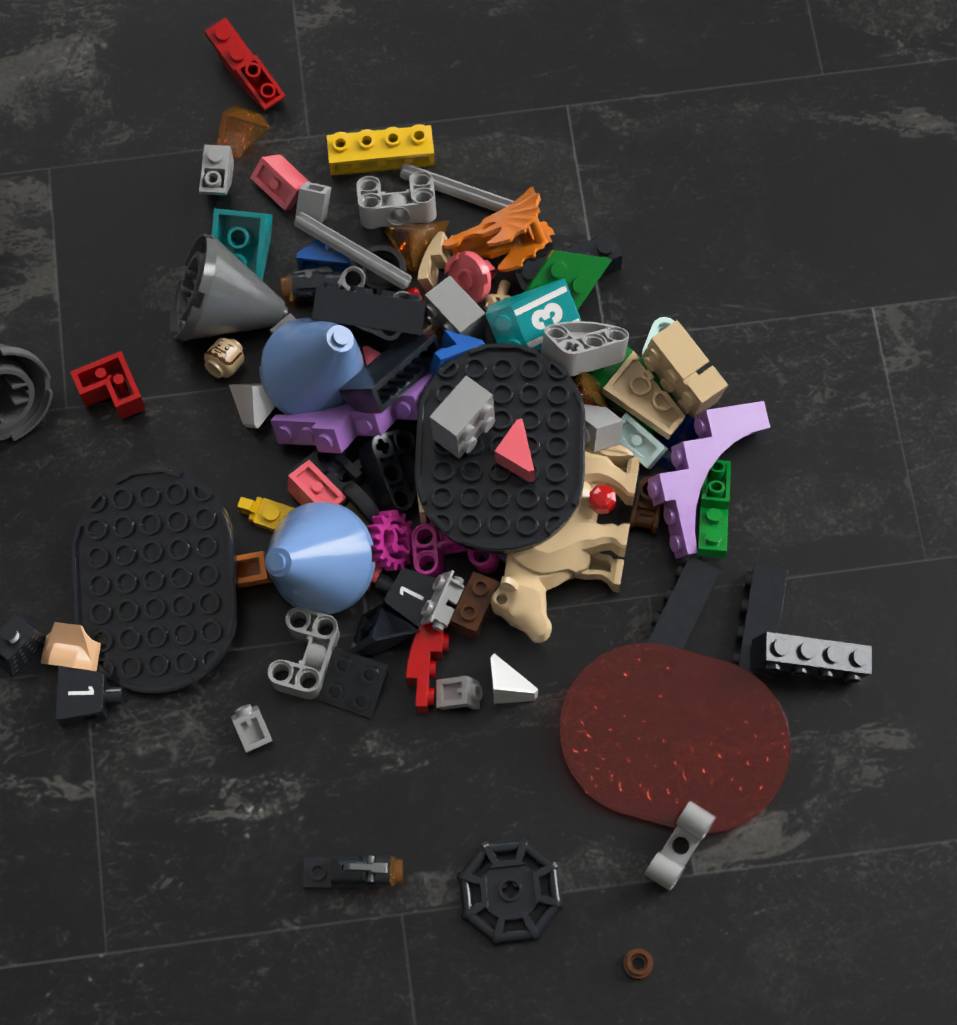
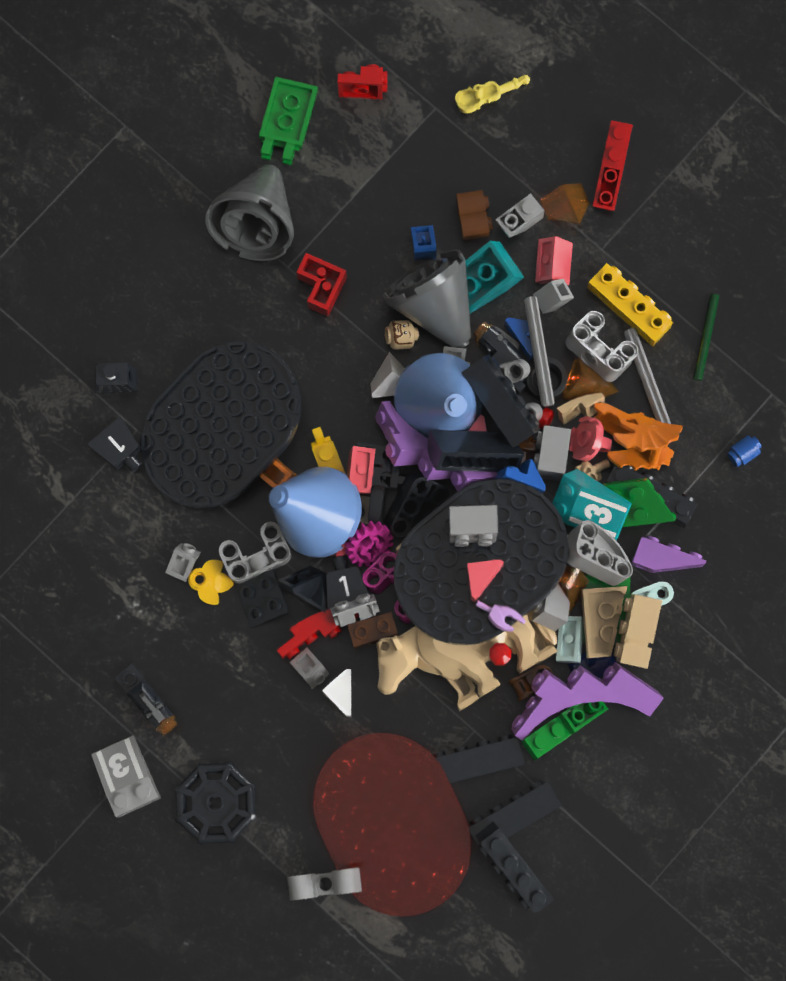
camera: 50 degrees right, 10 degrees up
(70, 647) = (137, 413): light nougat slope -> none
(72, 131) = (471, 99): none -> light yellow piece
(161, 272) = (423, 243): none -> blue slope
(175, 211) = (473, 215): none -> reddish brown brick
(295, 715) = (213, 583): none -> yellow plate
(409, 956) = (125, 777): none -> light grey slope
(469, 117) = (706, 337): none -> dark green bar
(565, 467) = (498, 613): none -> lavender hand
(598, 163) = (744, 451): none -> blue brick
(634, 302) = (659, 558): none -> medium lavender slope
(638, 954) = (228, 916): reddish brown plate -> none

